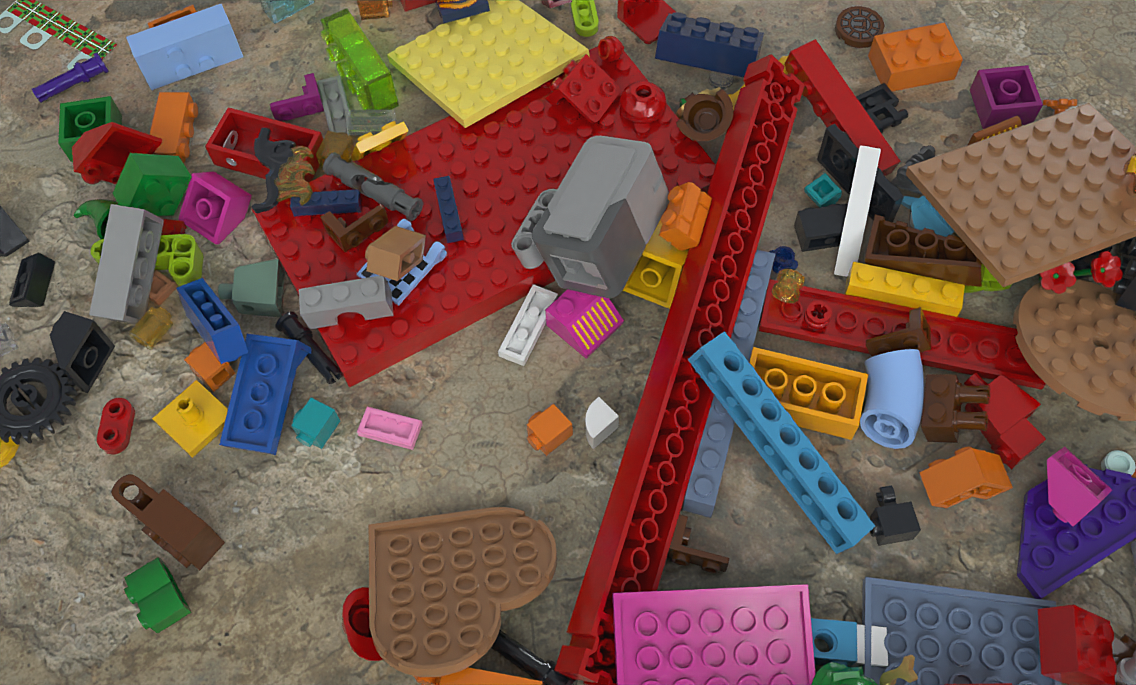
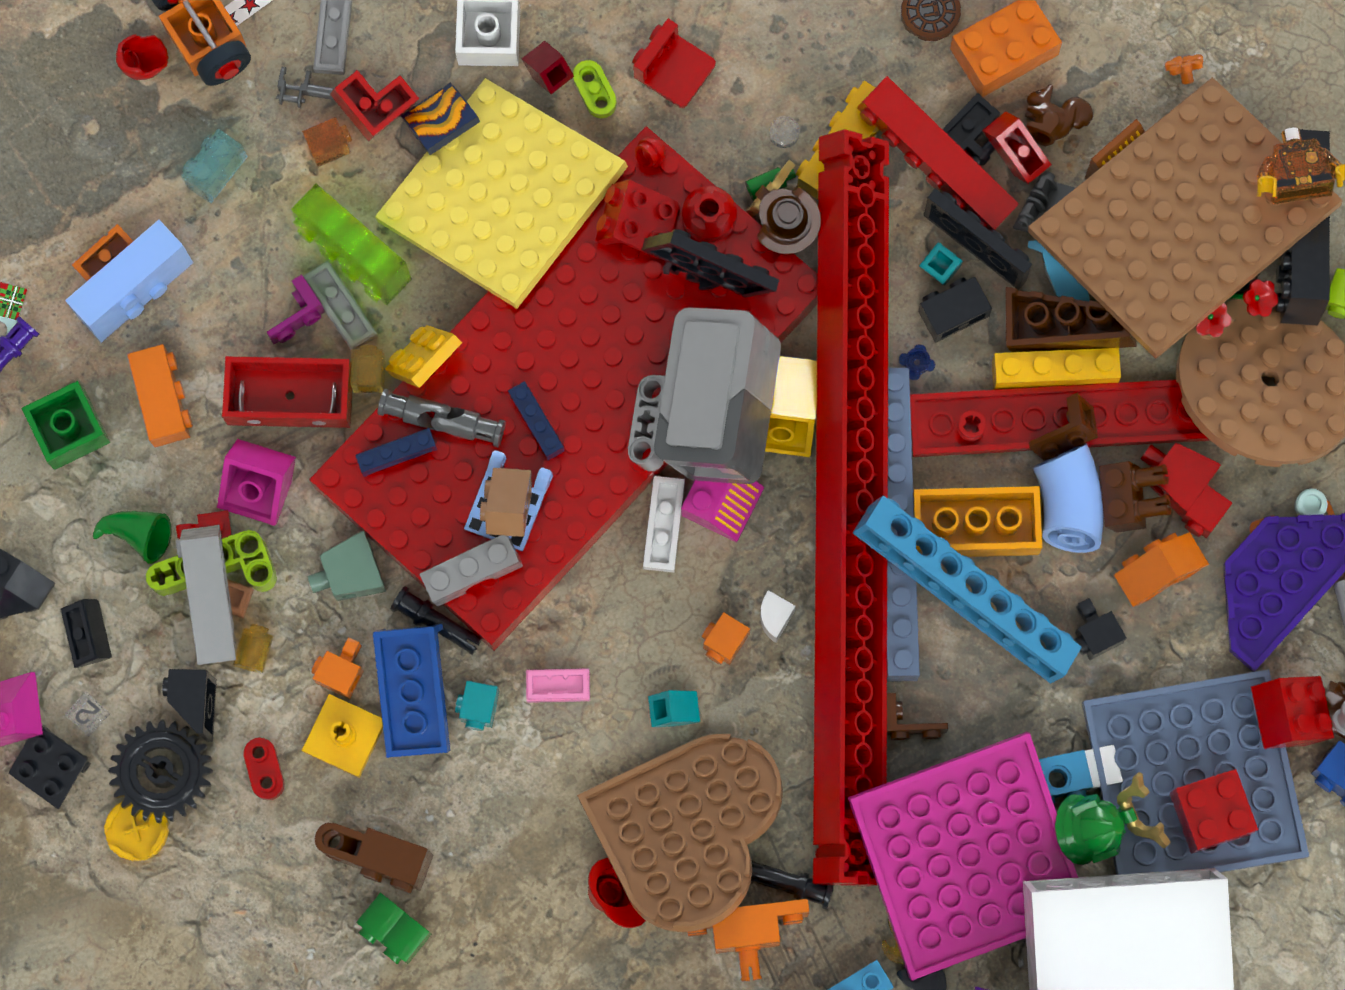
camera: 15 degrees left, 15 degrees up
(105, 149) = (117, 459): red slope -> none
(152, 183) = (184, 484): green brick -> none
(212, 321) = (327, 628): blue brick -> none
(285, 172) = (338, 427): piece -> none
(352, 235) = (426, 483): reddish brown bracket -> none
(365, 121) = (391, 316): clear tile -> none
(483, 476) = (674, 708): none -> teal brick
(626, 115) = (707, 265): none -> black plate
(685, 216) = (803, 363): orange brick -> none
(708, 44) = (761, 101): dark blue brick -> none
(788, 285) = (932, 402): clear yellow wheel -> none
(857, 209) = (985, 289): white sticker -> none
(908, 121) = (1017, 147): none -> red brick
(940, 117) = (1054, 121): none -> reddish brown animal
(1005, 94) = (1120, 77): magenta brick -> none
(1073, 487) = (1265, 547): dark pink slope -> none

